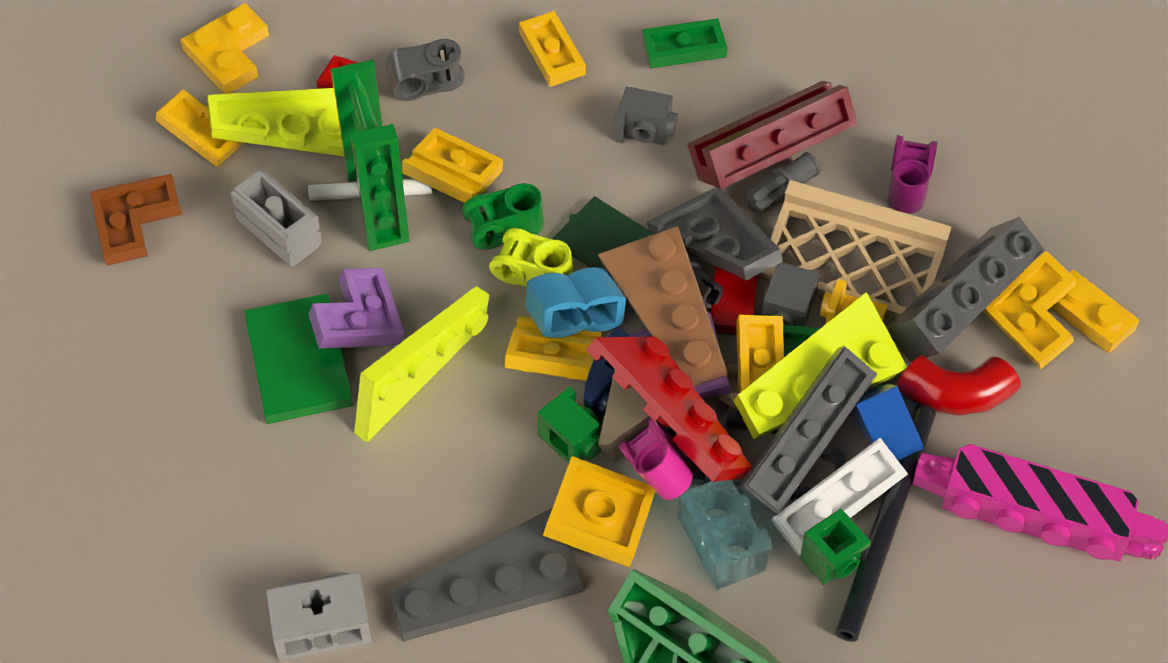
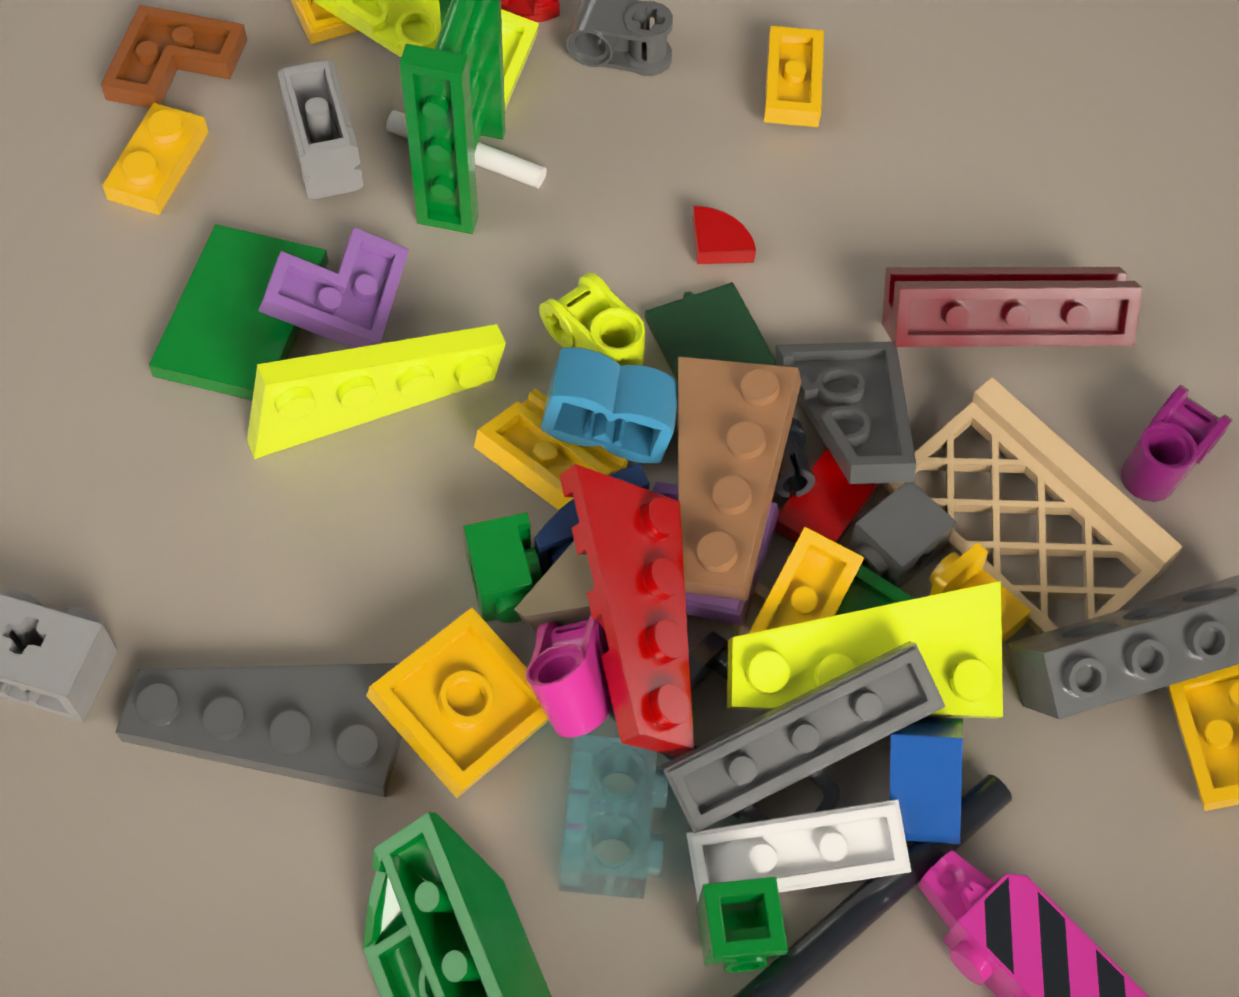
camera: 25 degrees right, 5 degrees up
(169, 288) = (155, 158): none -> yellow plate
(452, 165) = (577, 164): yellow plate -> none
(503, 210) = (611, 248): green piece -> none
(569, 172) = (721, 238): none -> red tile
(645, 116) = (856, 210): dark grey brick -> none
(684, 43) = (967, 141): green plate -> none
(775, 186) = (1012, 372): dark grey axle -> none
(959, 391) = (1063, 788): red cylinder -> none

